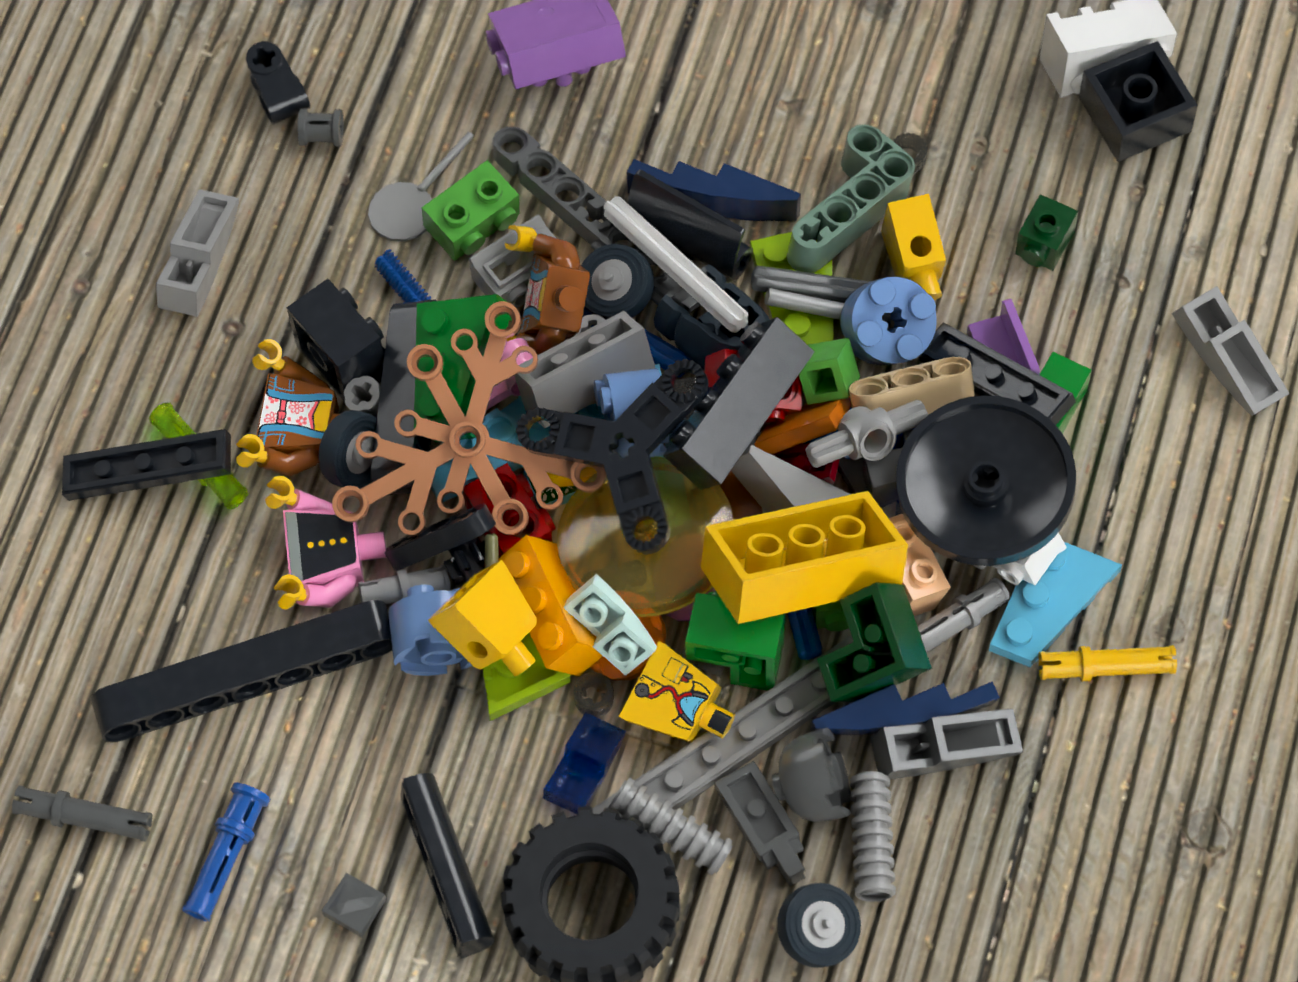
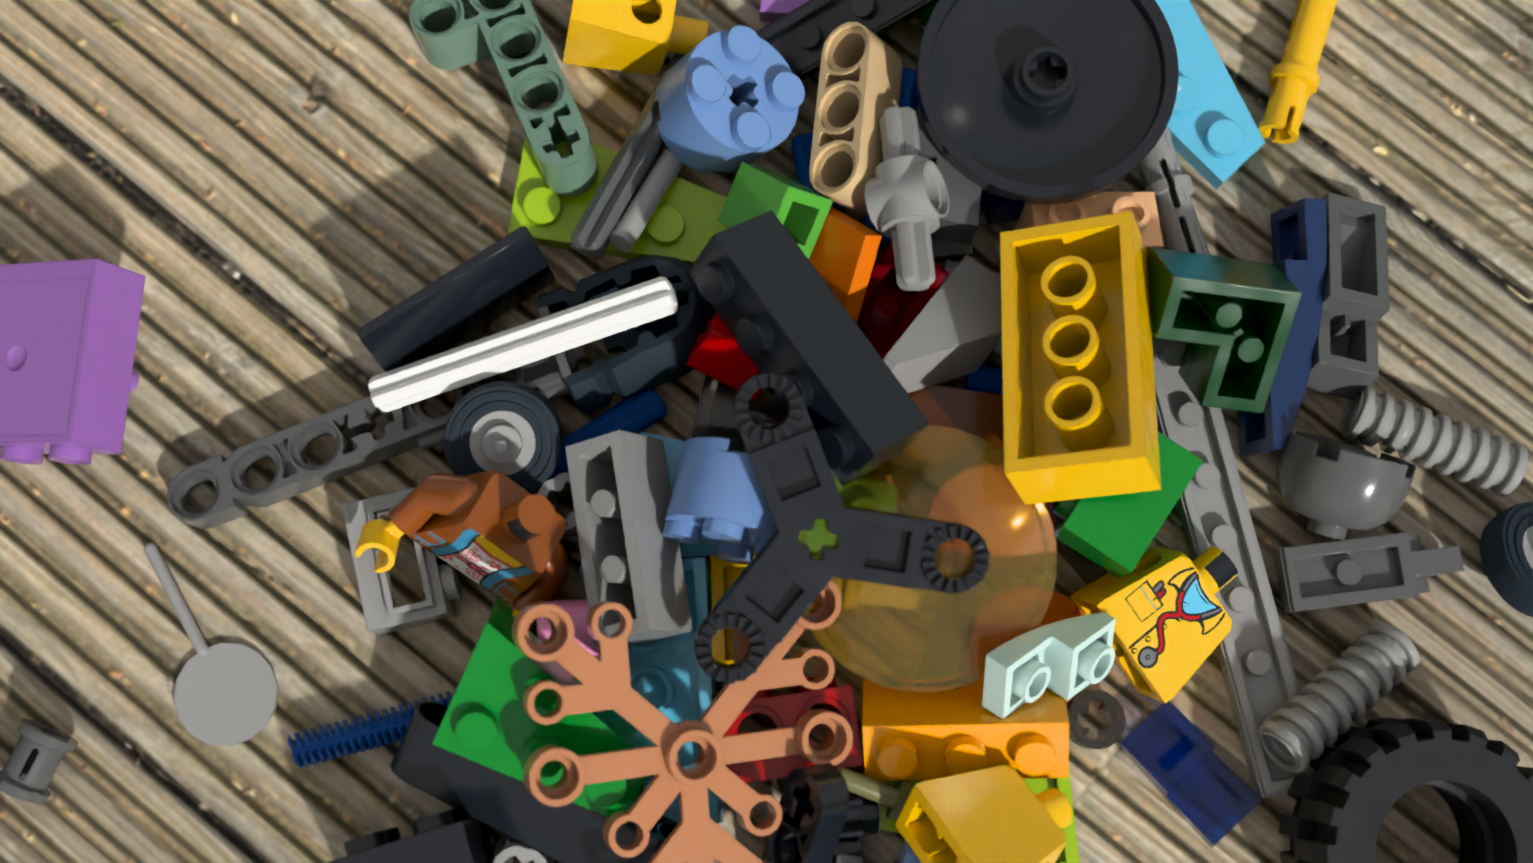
camera: 75 degrees left, 15 degrees up
(471, 211) = (283, 594): bright green brick -> none
(730, 193) = (425, 229): dark blue slope -> none

